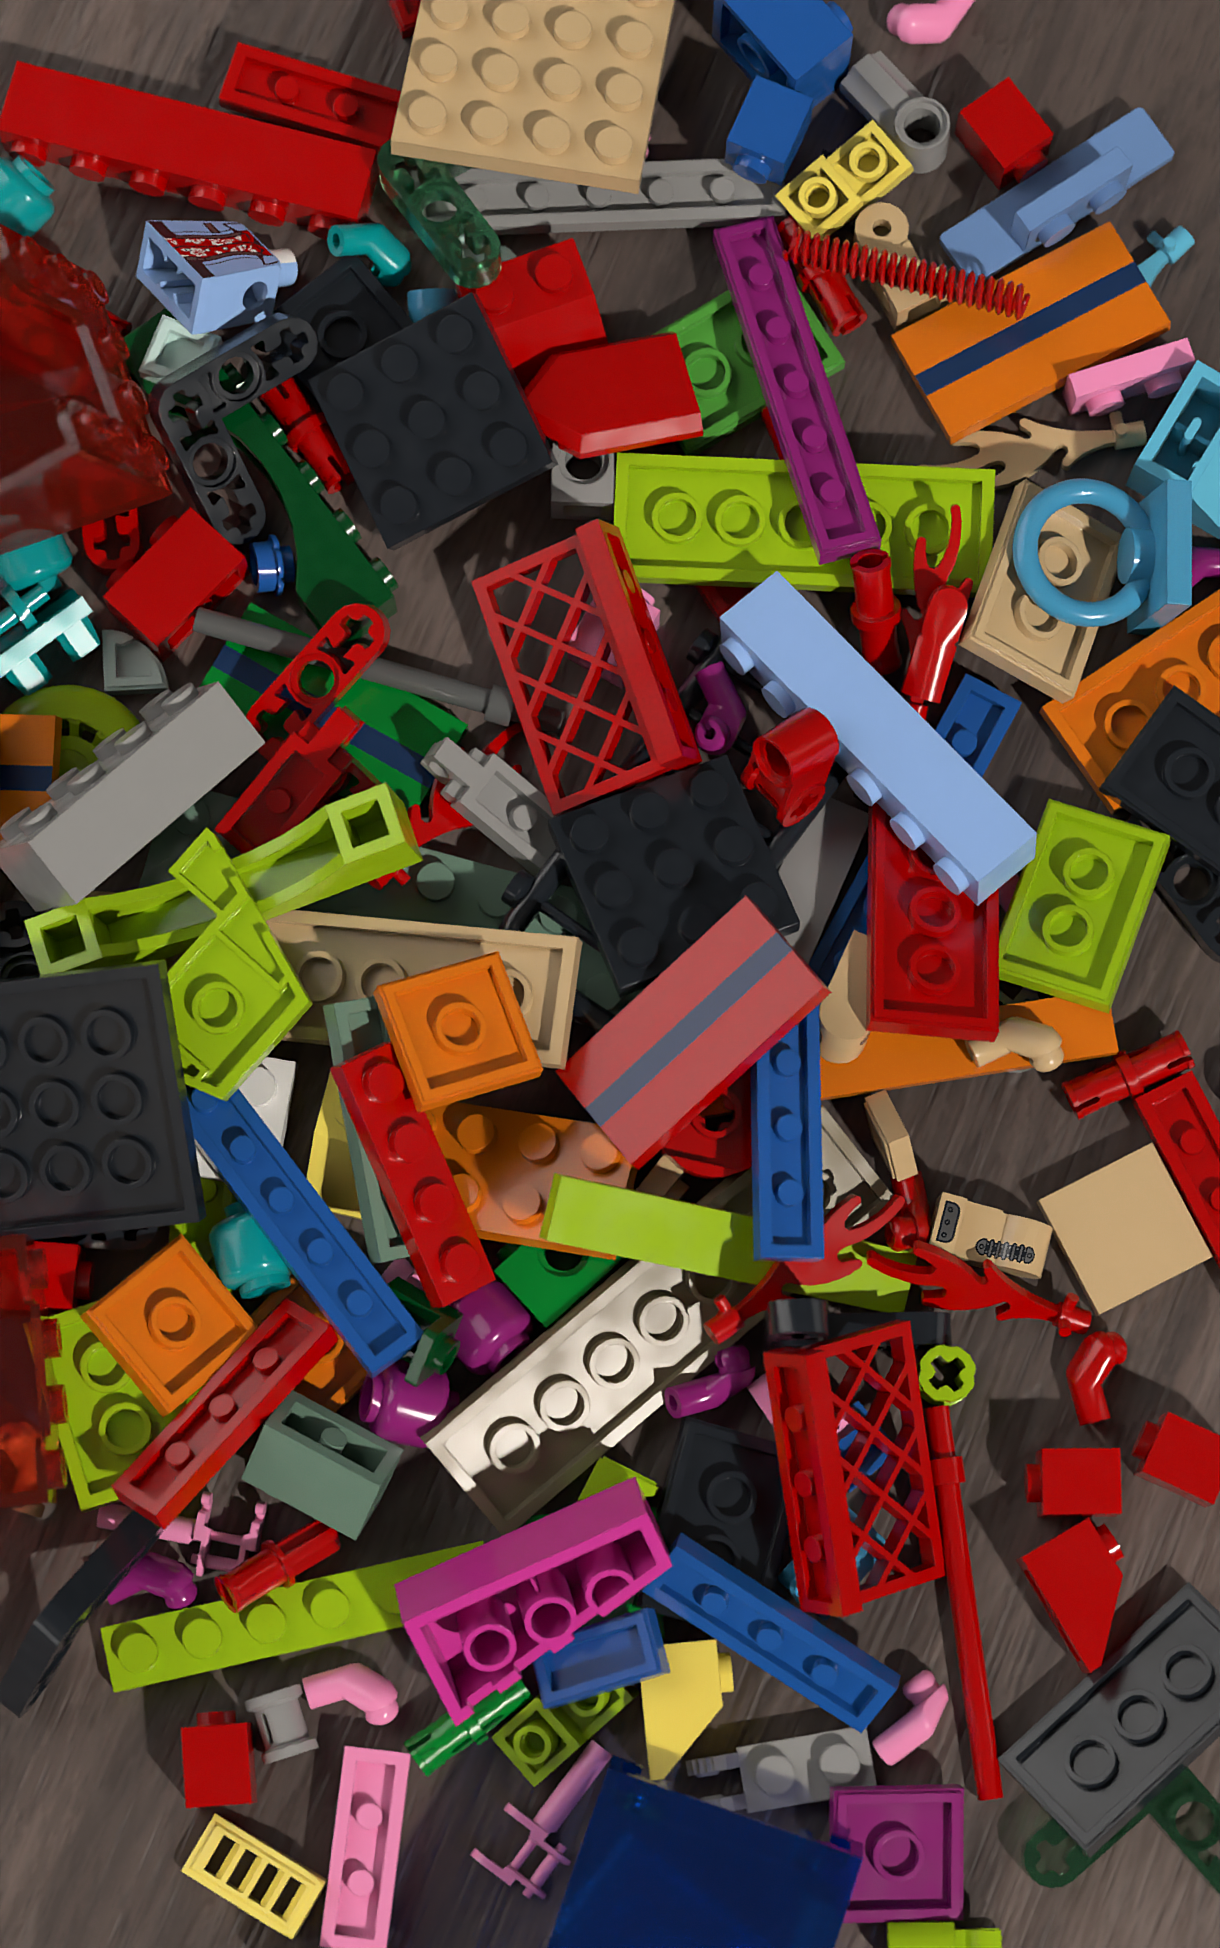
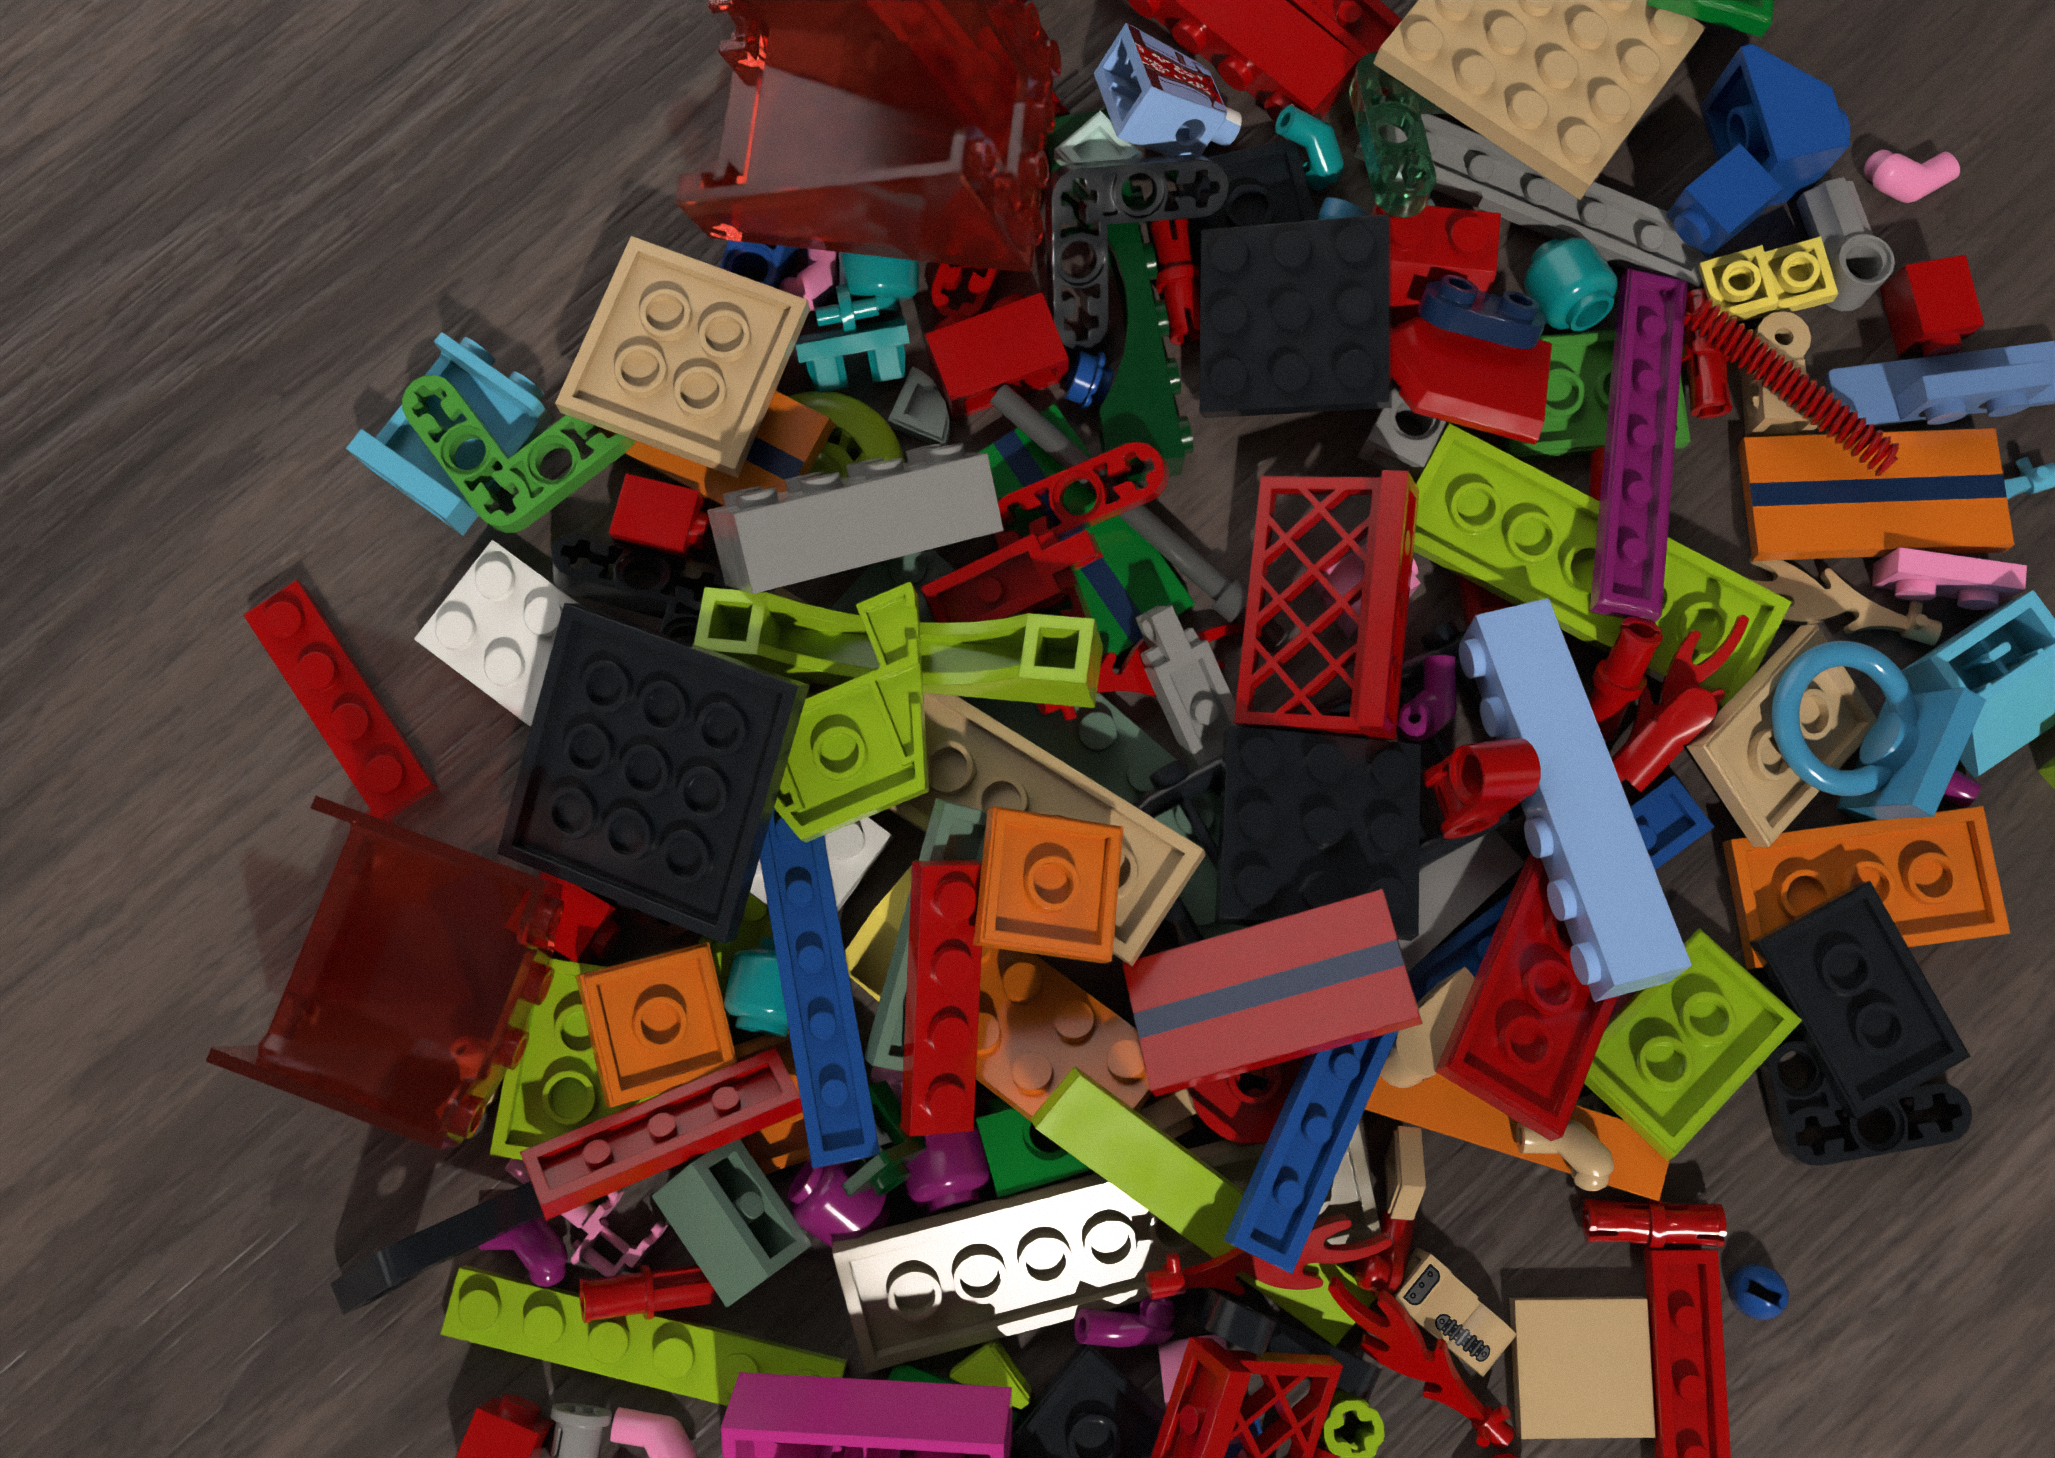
camera: 25 degrees right, 0 degrees up
(599, 339) = (1464, 309): none -> dark blue plate
(668, 267) = (1571, 283): none -> teal head

